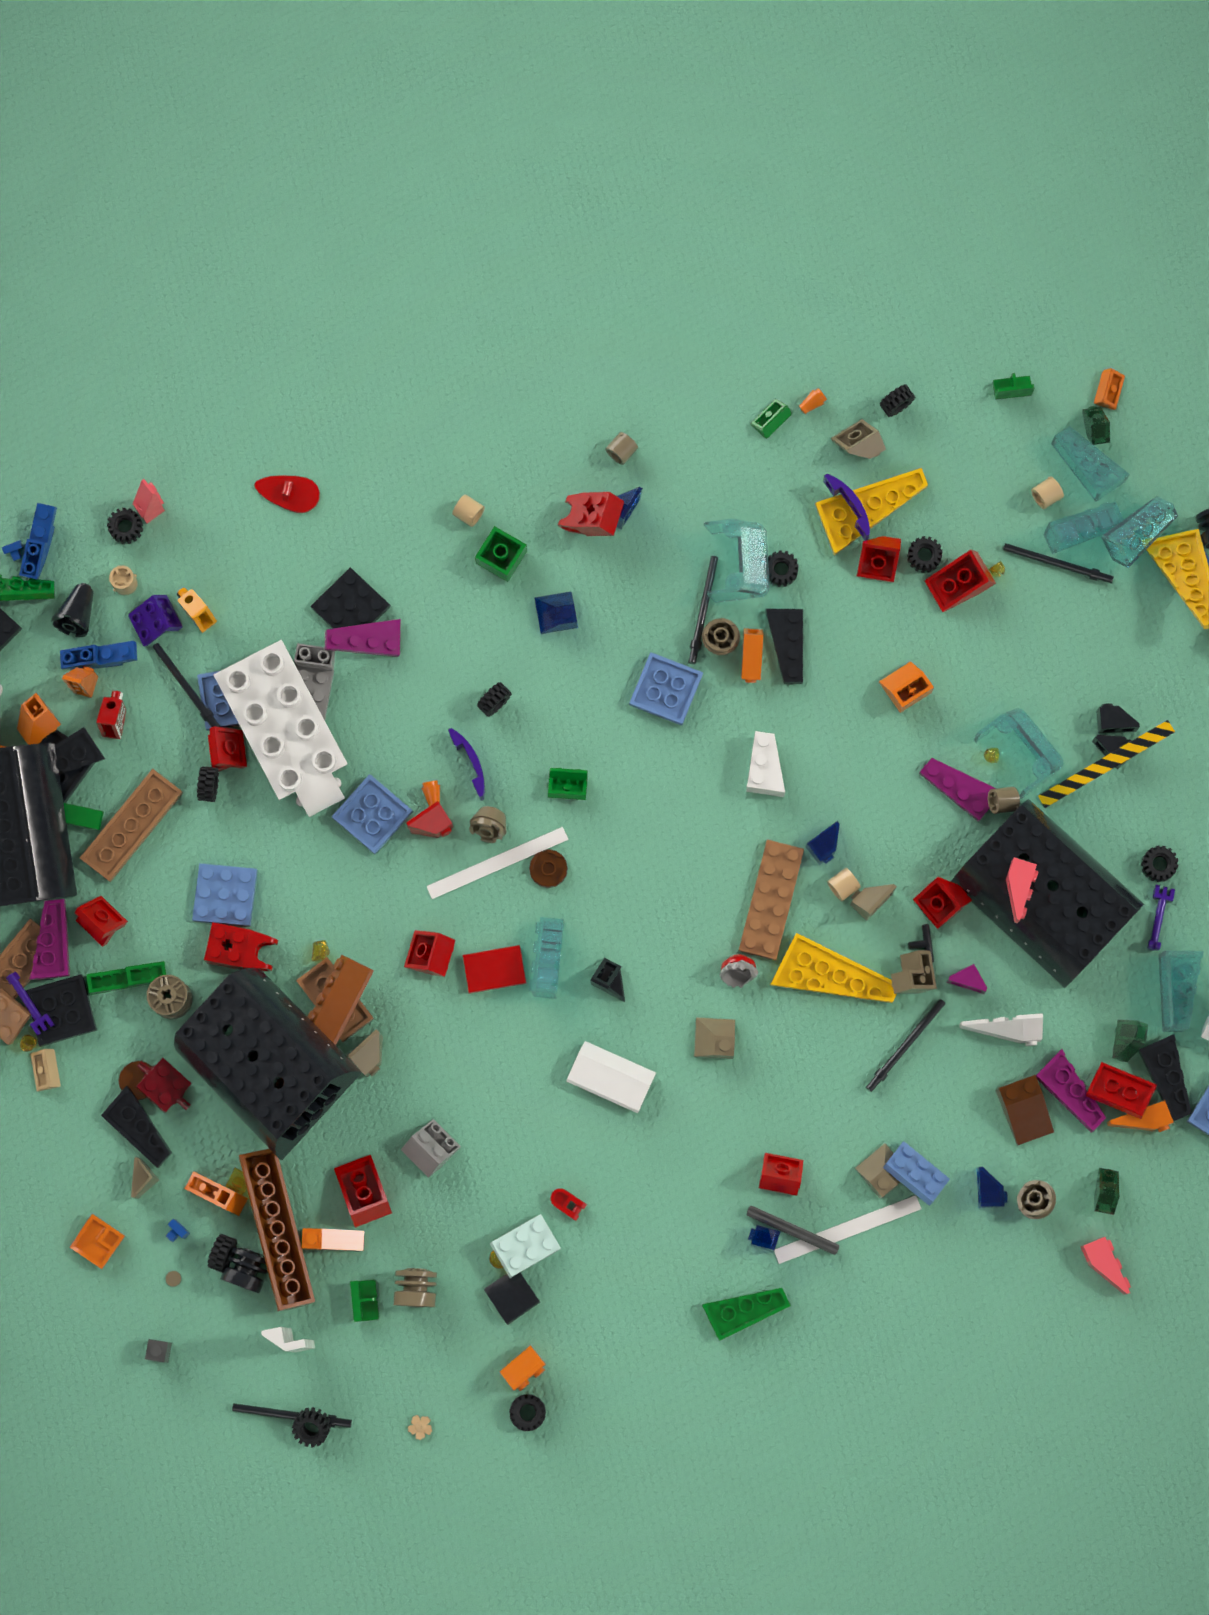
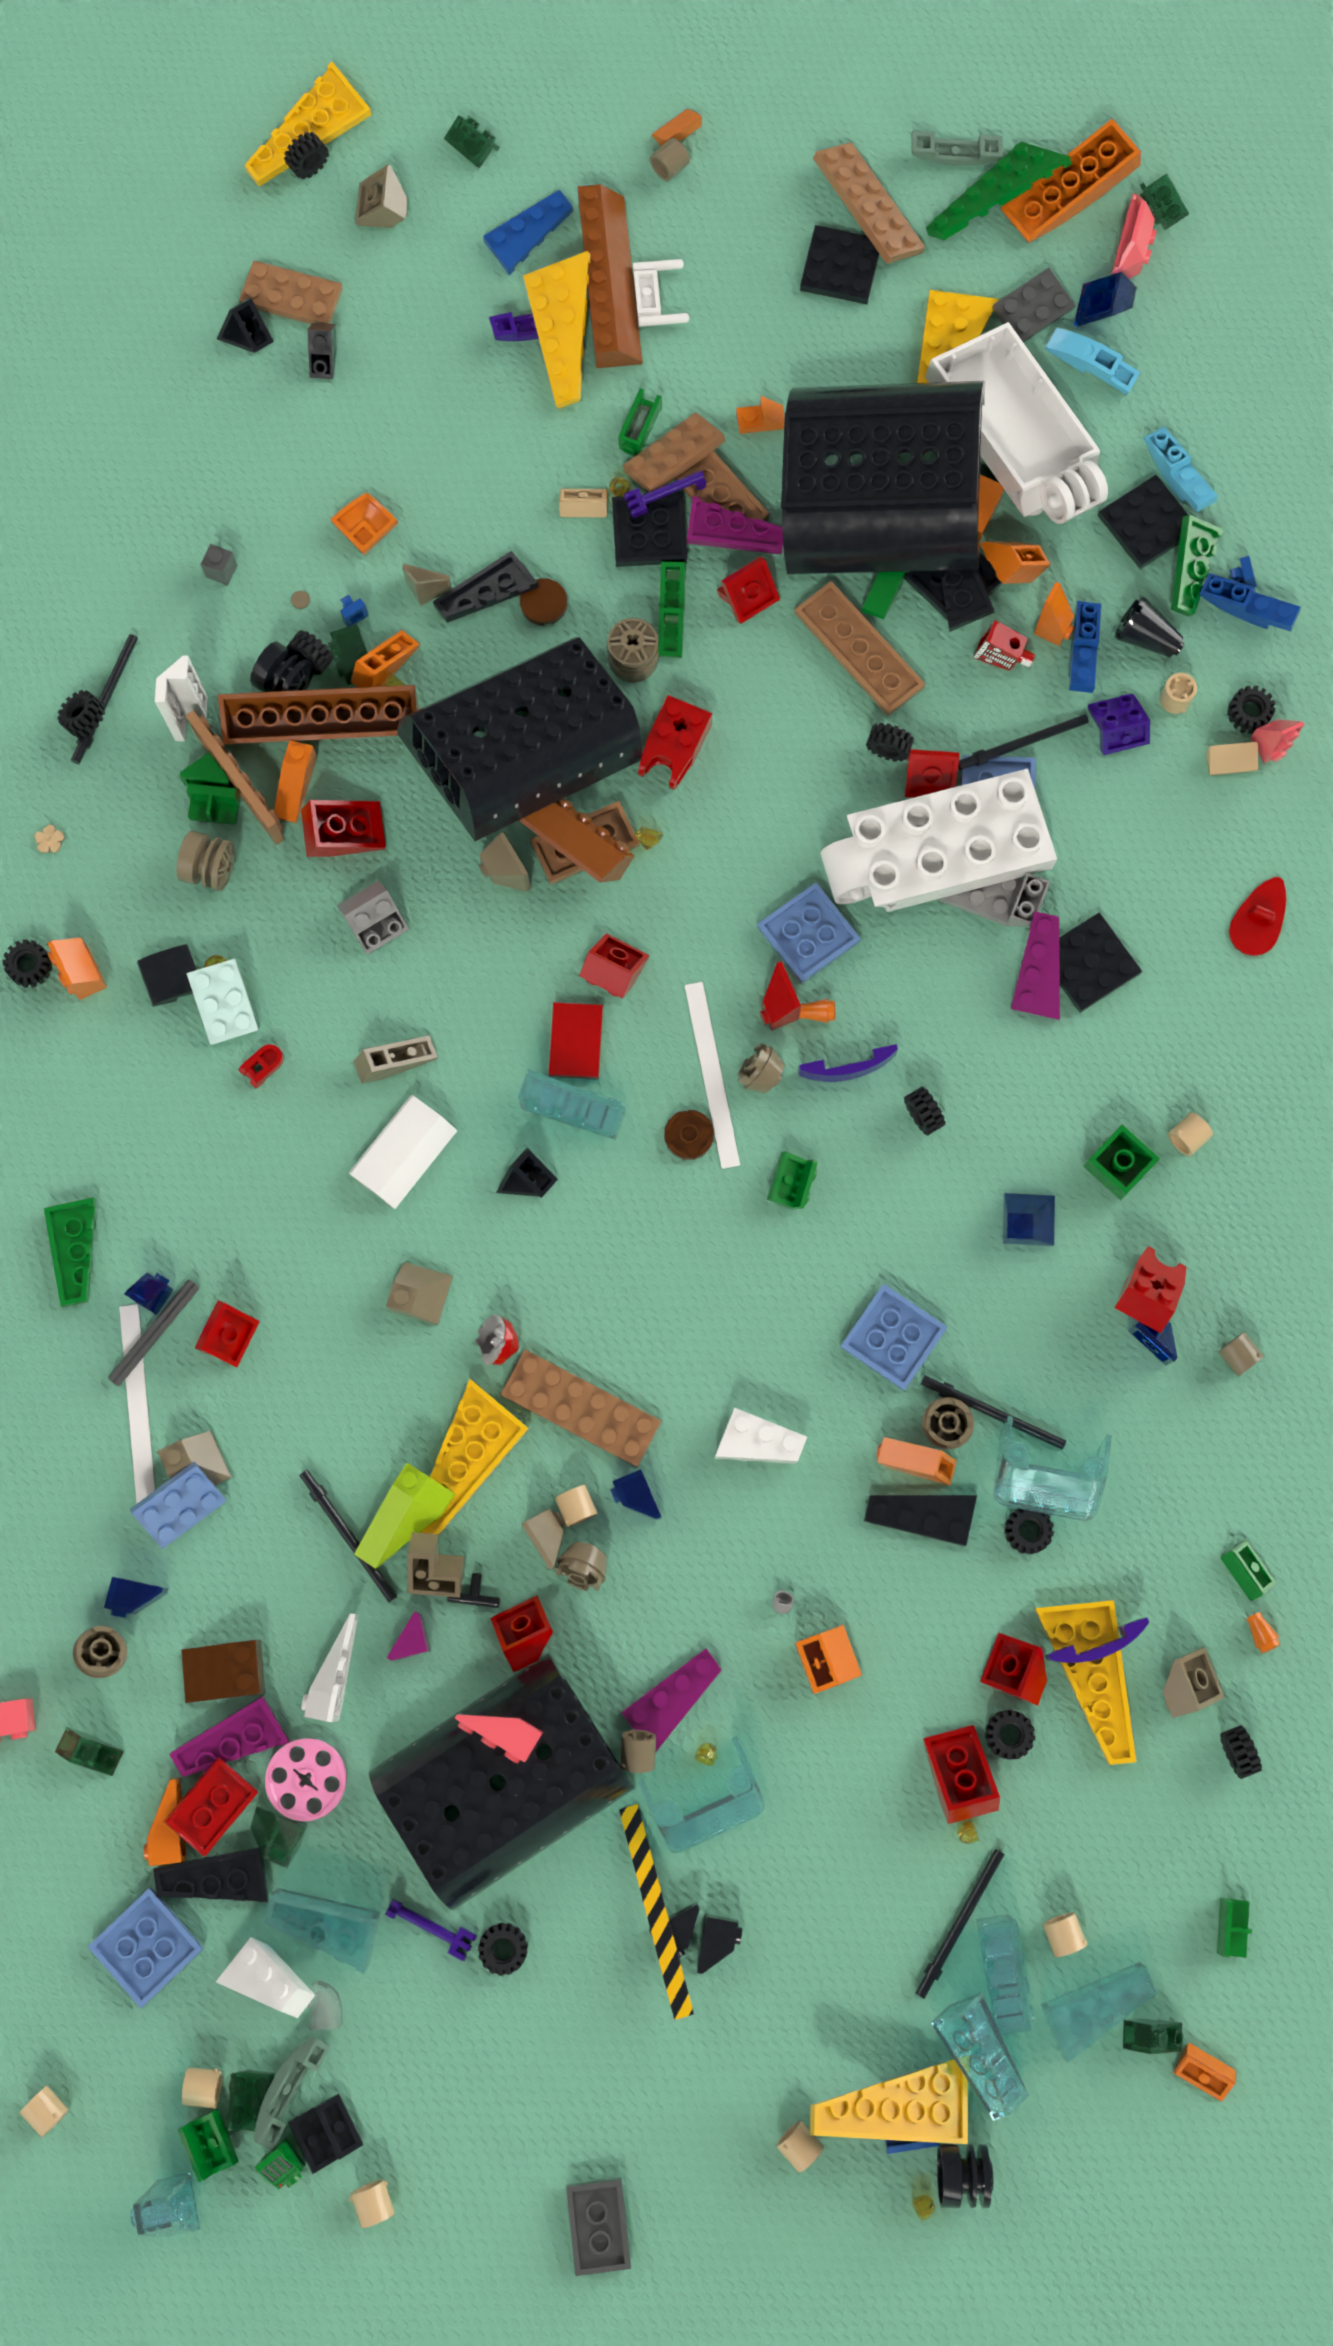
camera: 100 degrees right, 0 degrees up
(163, 1085) = (528, 626): dark red plate -> none
(167, 532) = (1232, 758): none -> tan slope
(196, 609) = (1121, 771): light orange torso -> none
(211, 1224) = (349, 647): none -> clear green slope
(224, 895) = (747, 741): medium blue plate -> none
(335, 1289) = (238, 779): none -> medium nougat plate
(340, 1310) = (205, 772): none -> green slope
(540, 1101) = (394, 1058): none -> dark tan slope
(874, 726) = (782, 1602): none -> light grey hinge
(879, 1003) = (408, 1507): none -> lime wedge
(885, 868) = (583, 1566): none -> dark tan cone
(1079, 1022) = (305, 1793): none -> bright pink wedge

